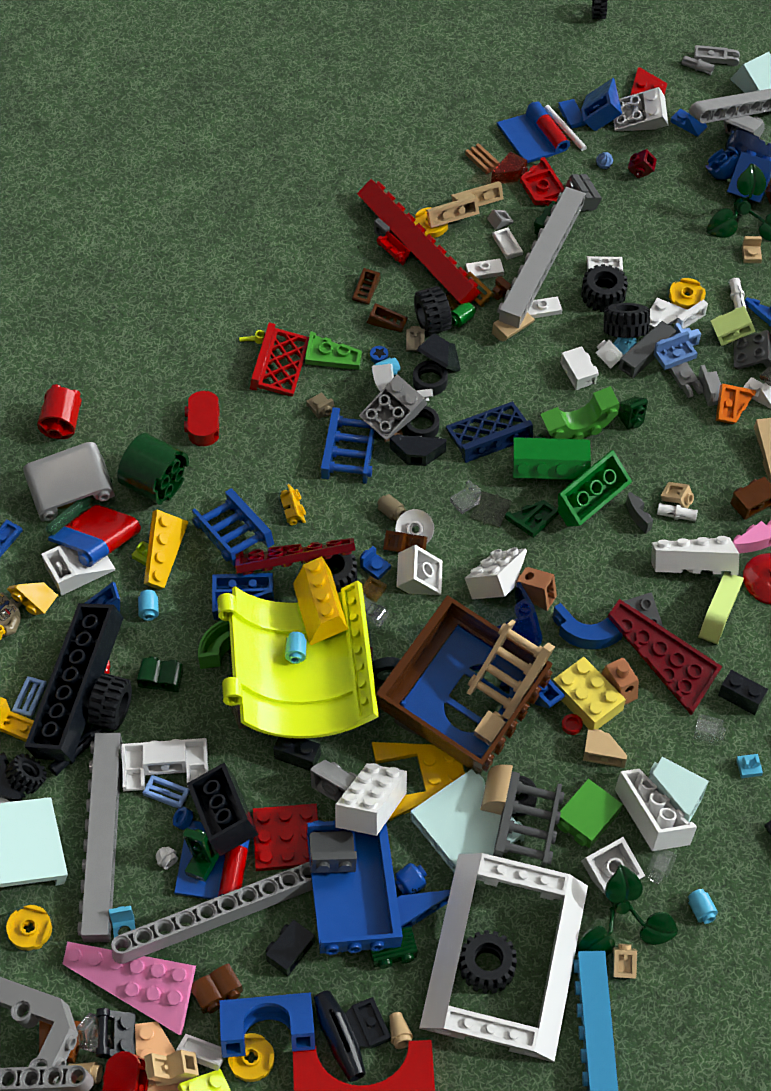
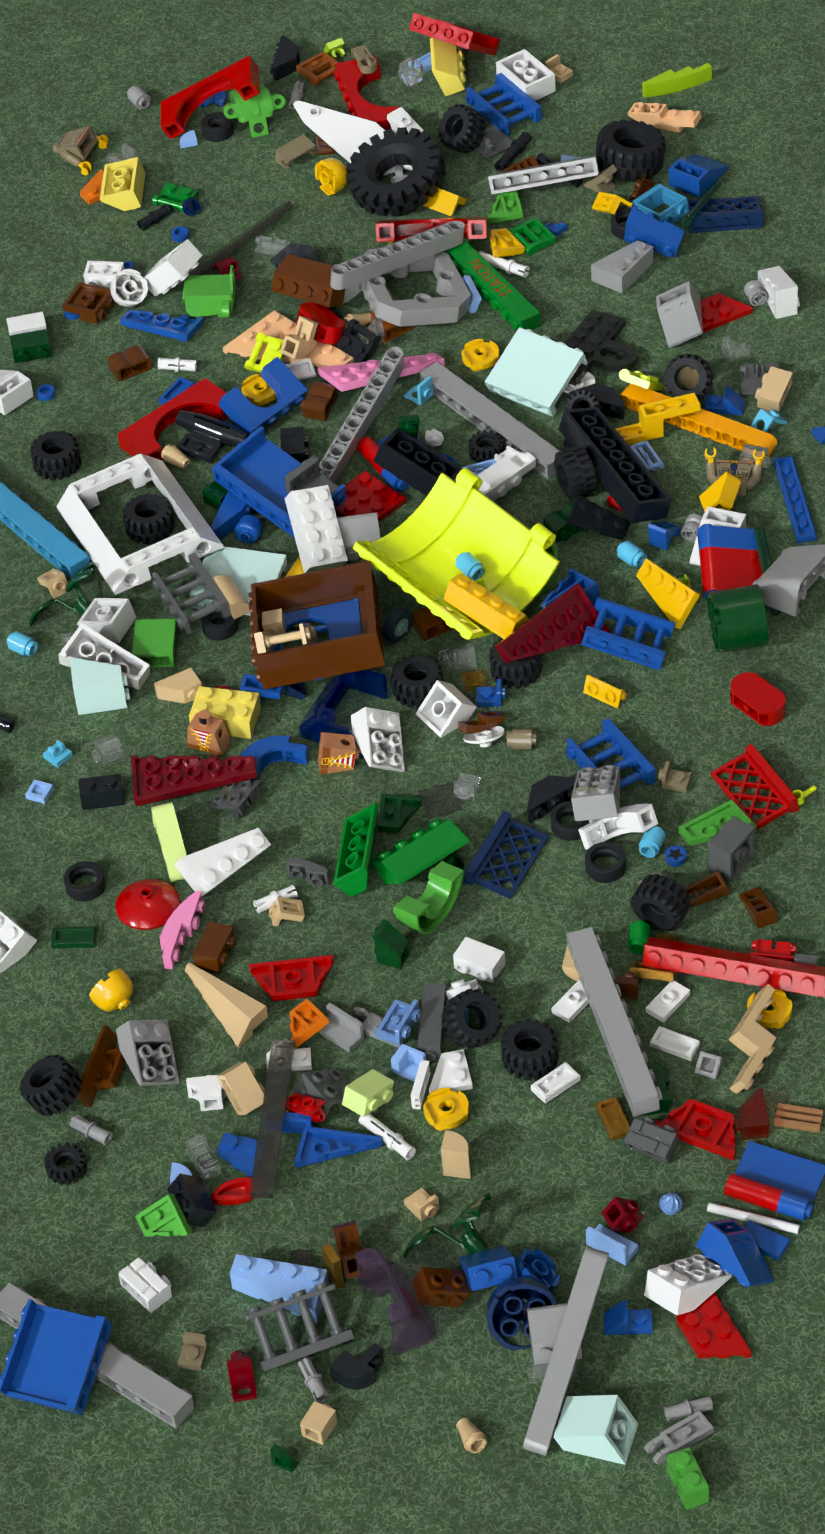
camera: 145 degrees right, 10 degrees down
(83, 590) = (689, 530): none -> light grey wheel
(130, 799) = (485, 439): none -> black tyre
(143, 649) = (596, 518): none -> black wing
(347, 318) = (731, 848): none -> dark grey brick
(411, 596) = (409, 670): none -> black tyre
(440, 352) = (611, 874): black slope -> none
(589, 226) = (613, 1118): none -> pearl gold tile
(665, 161) = (608, 1241): none -> light blue panel
(713, 251) = (455, 1155): none -> tan brick
(713, 444) = (292, 977): none -> red wing
(732, 31) = (687, 1475): none -> bright green brick

